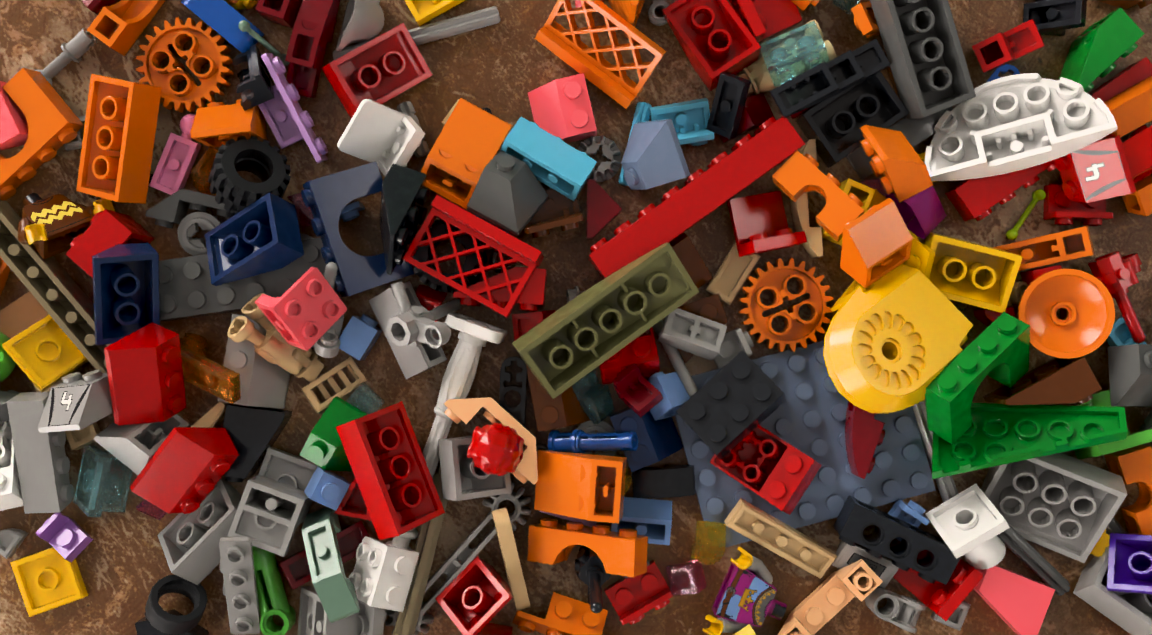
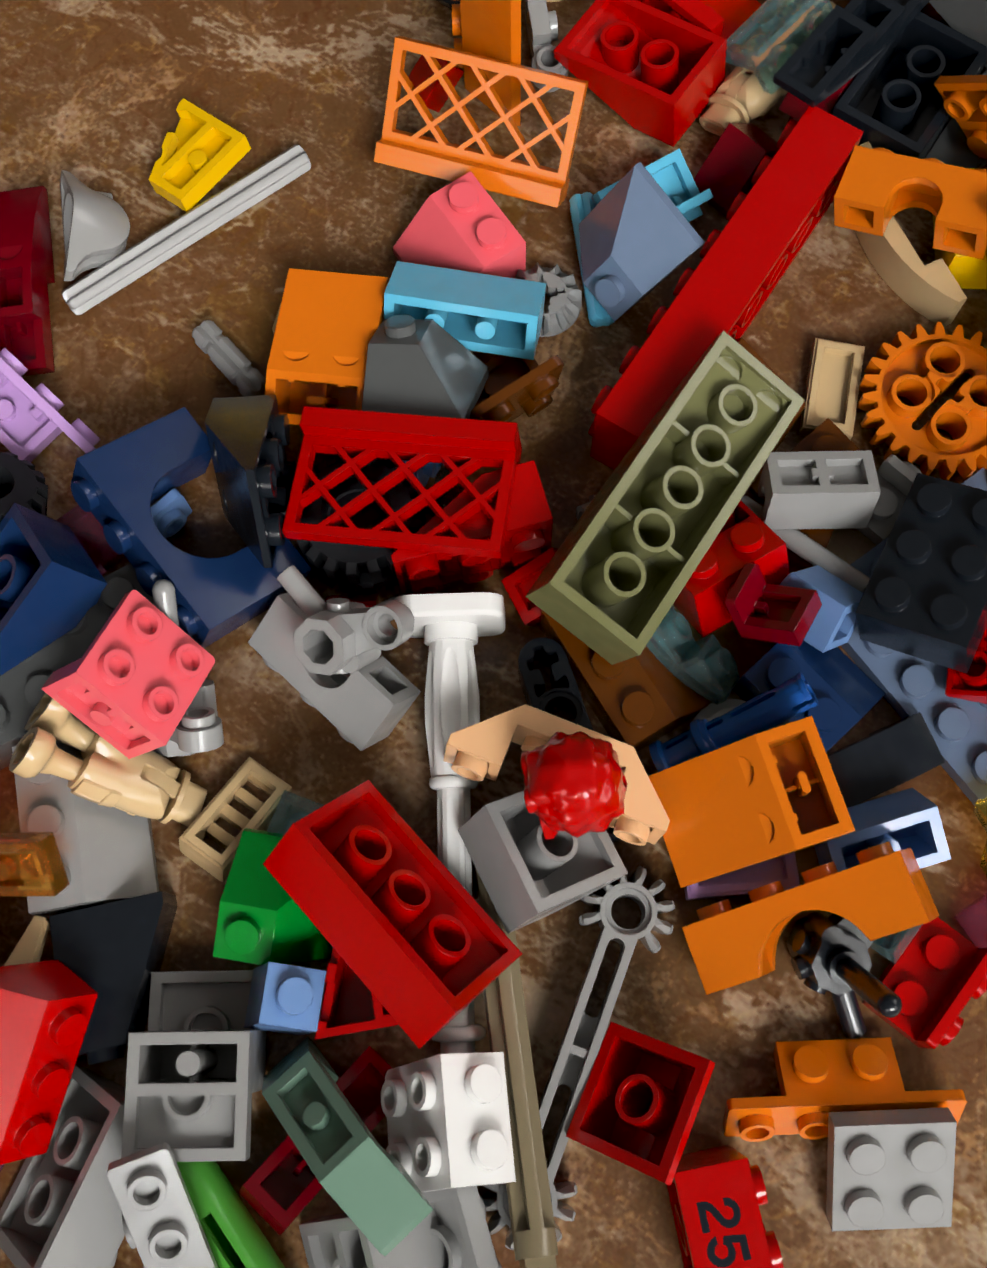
camera: 15 degrees left, 15 degrees down
(359, 336) = (253, 712): medium blue brick -> none
(377, 69) = (137, 290): red slope -> none
(381, 136) = (175, 367): white bracket -> none
(511, 558) = (675, 996): tan beam -> none
(600, 209) = (585, 368): dark red slope -> none
(728, 105) = (714, 135): black plate -> none
(762, 224) = (846, 298): red bracket -> none

